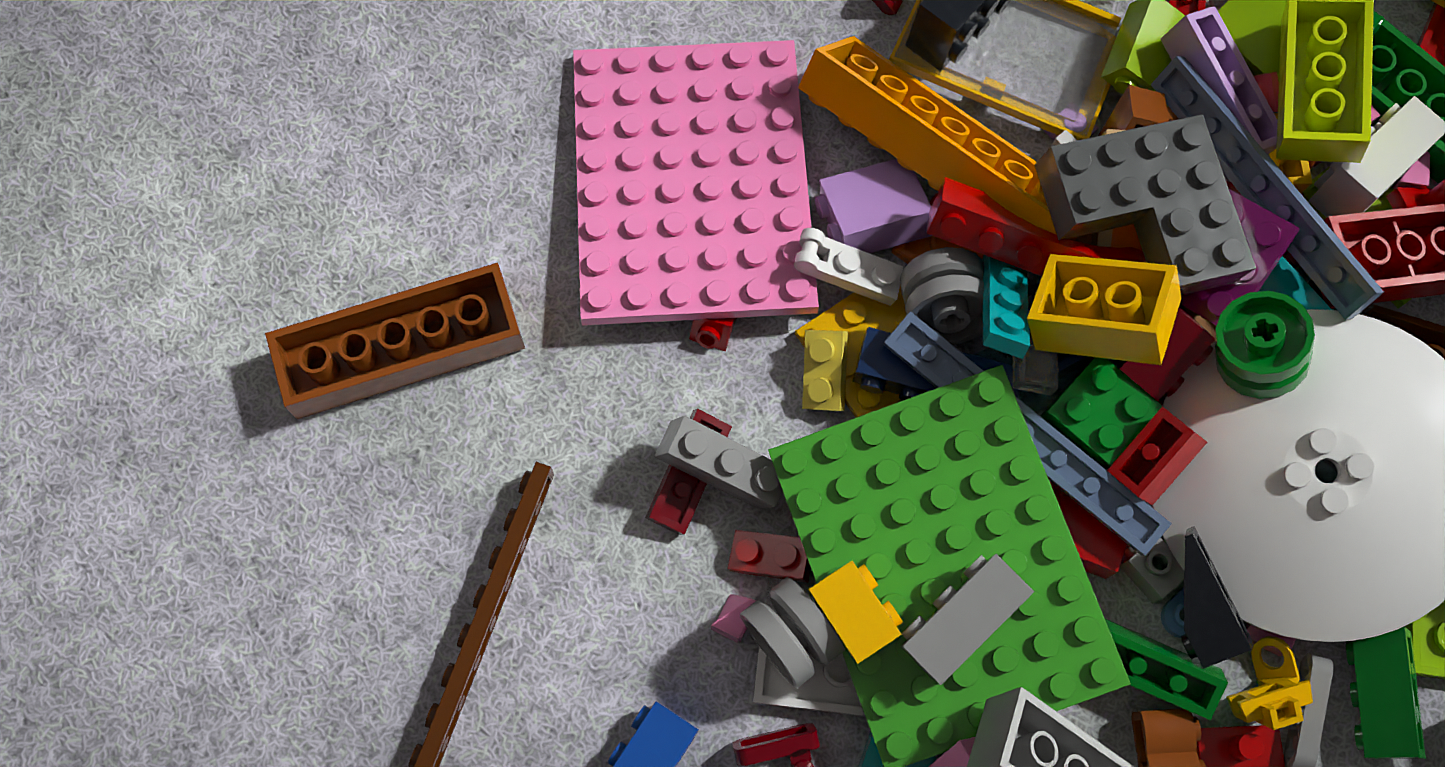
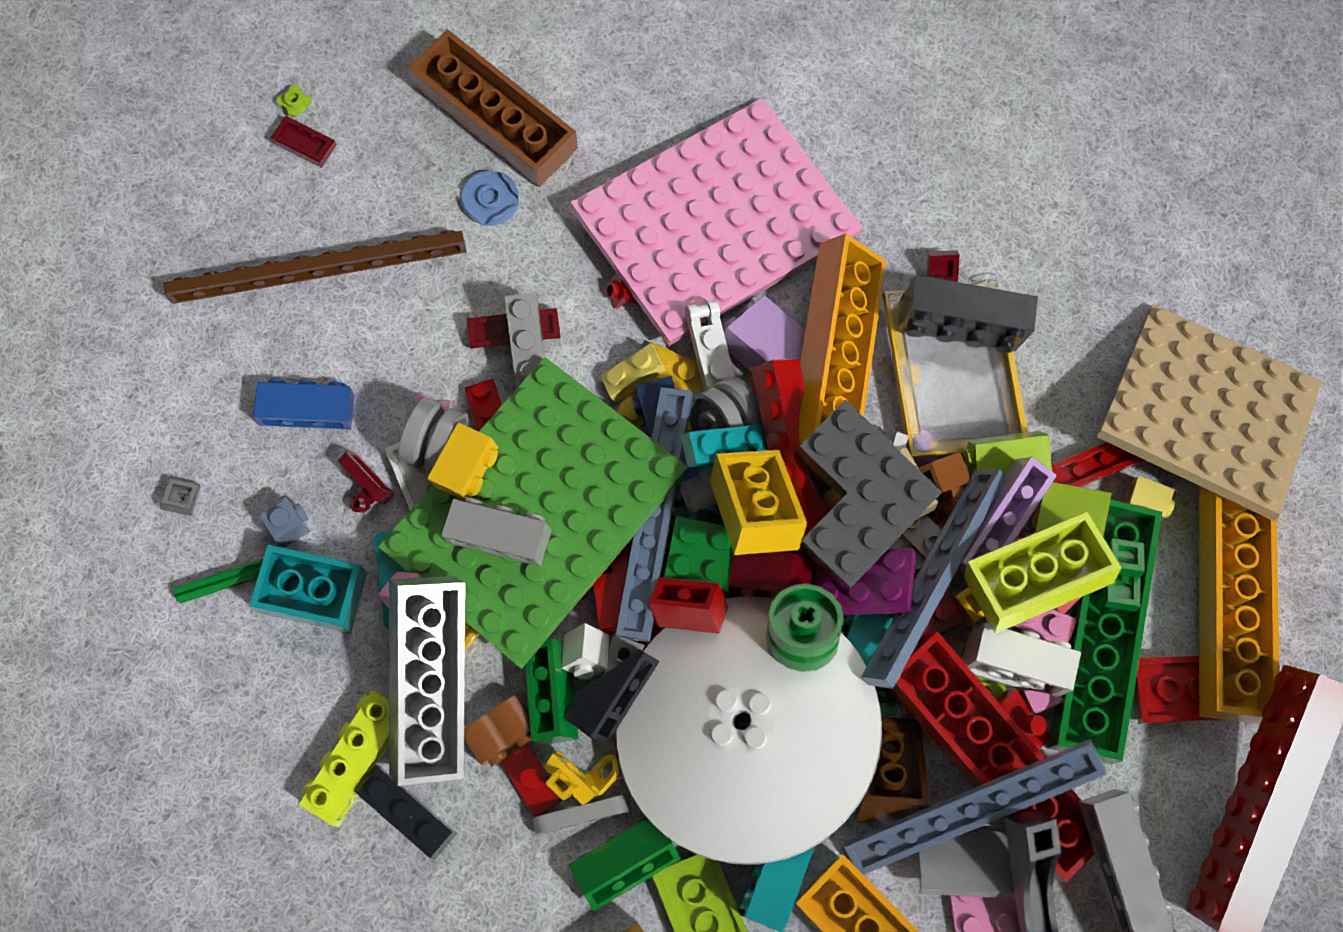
camera: 60 degrees right, 0 degrees up
(233, 575) = (297, 107): none -> lime plate
(286, 588) = (303, 141): none -> dark red plate
(502, 423) = (492, 206): none -> medium blue tile
(1133, 603) = (585, 651): none -> white brick

